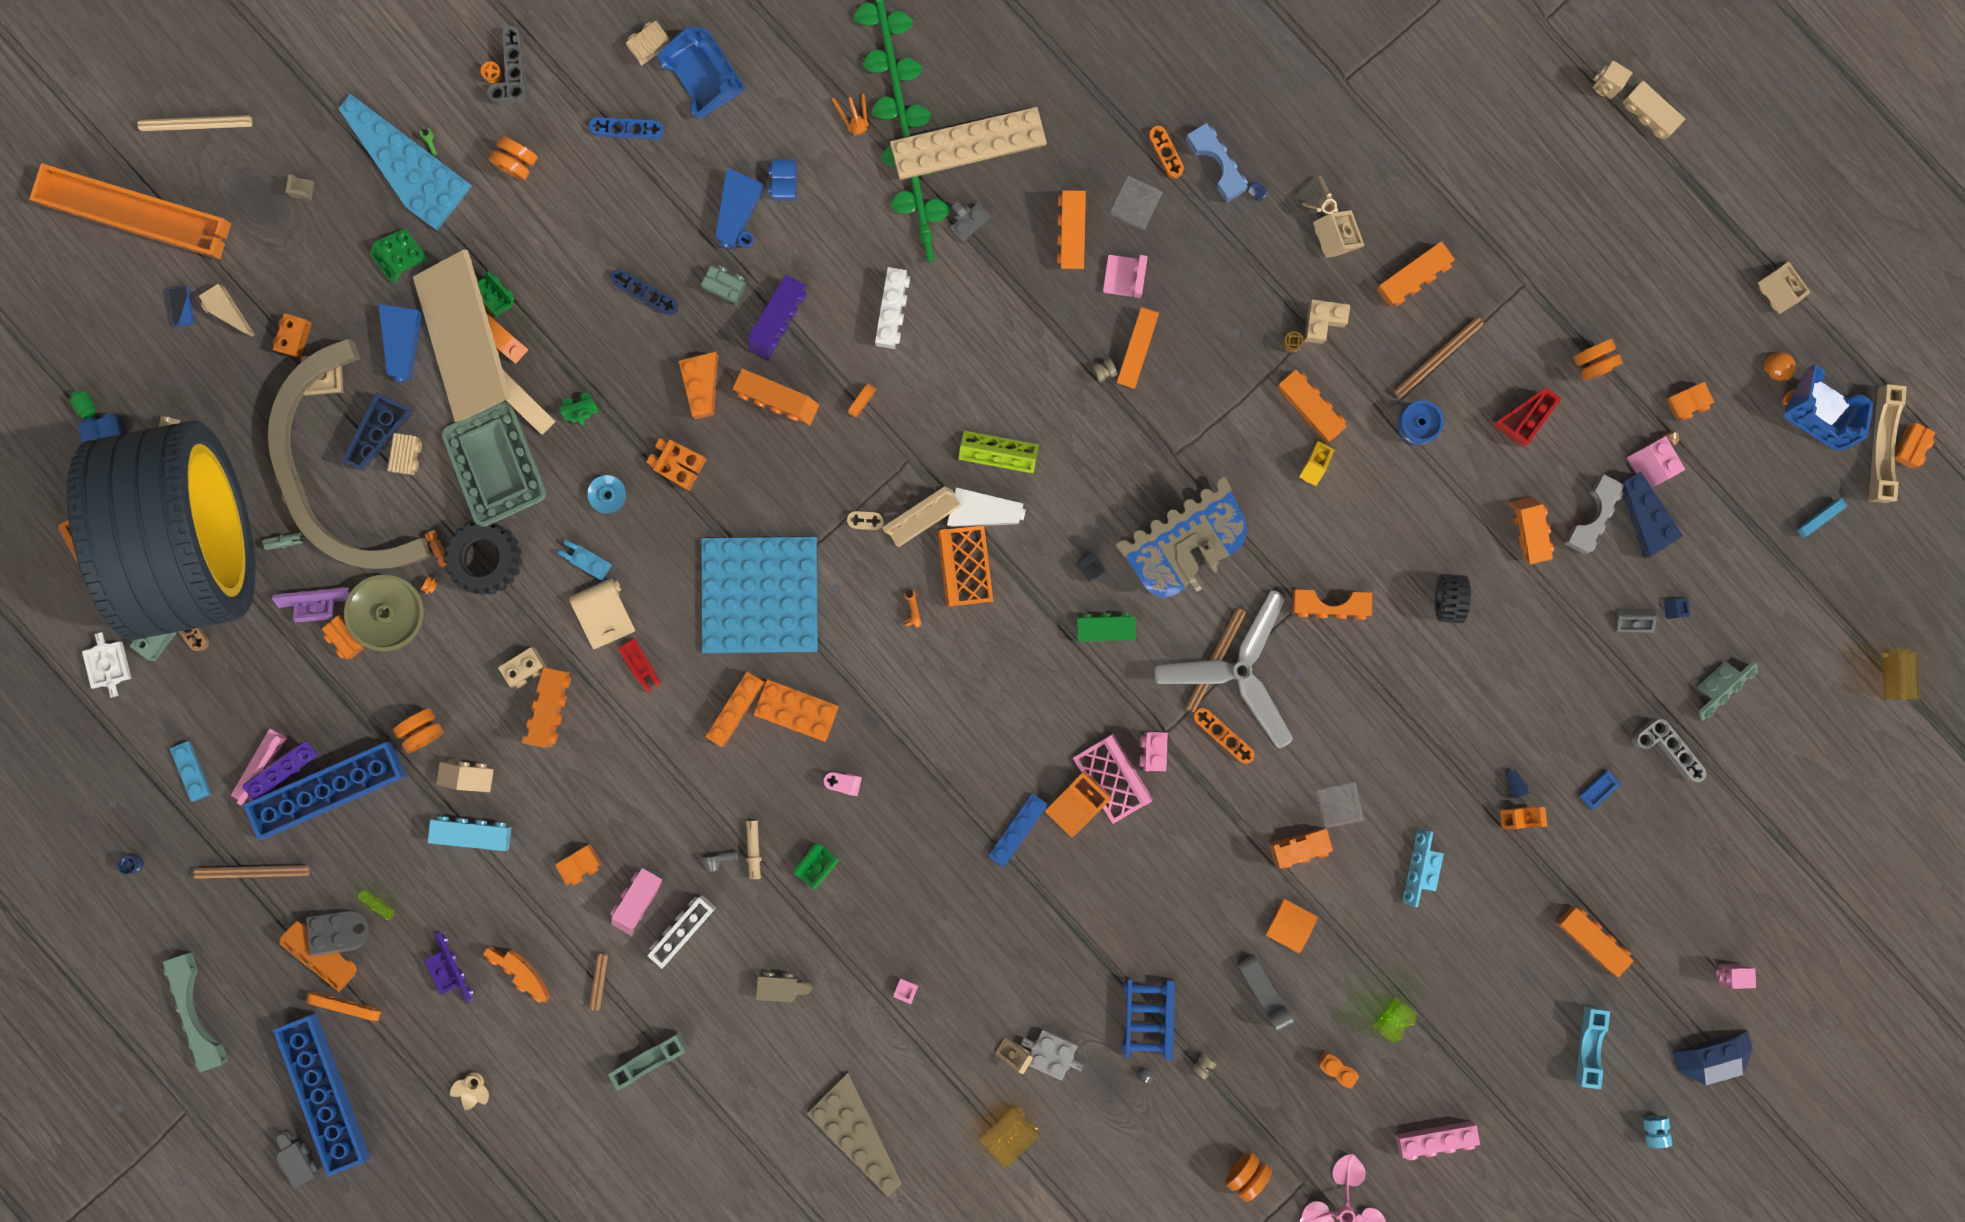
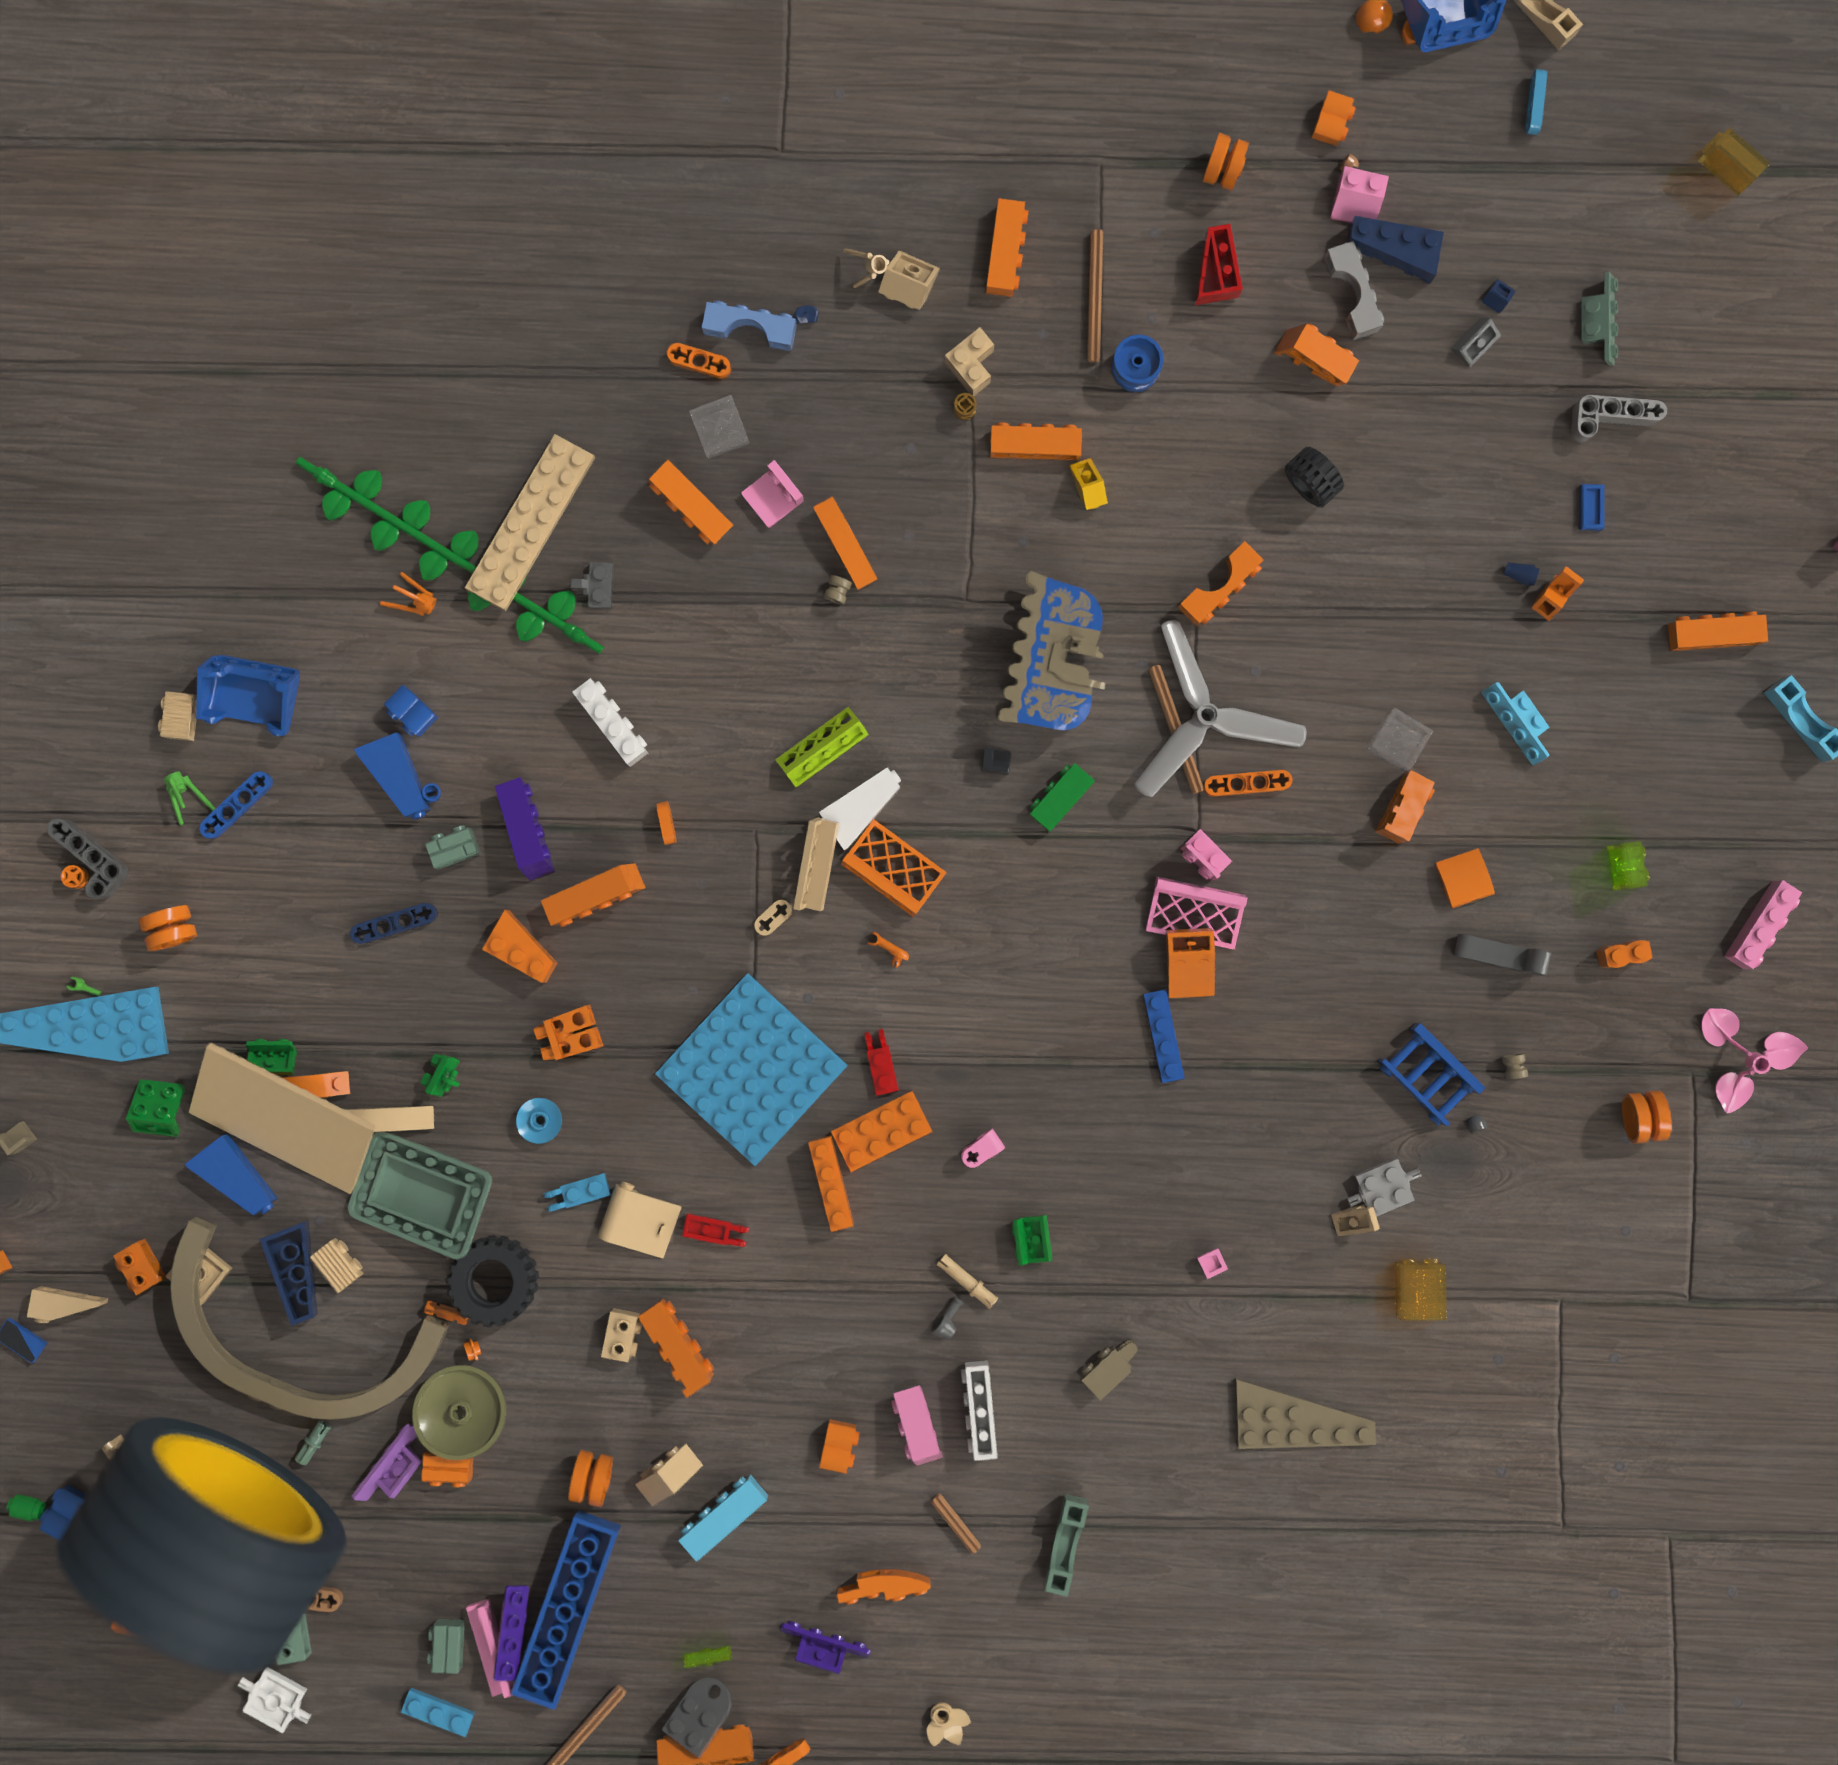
camera: 50 degrees left, 0 degrees up
(235, 739) = (447, 1646): none -> sand green brick
(603, 81) = (176, 785): none -> bright green plant
(836, 672) = (881, 1065): none -> red hinge

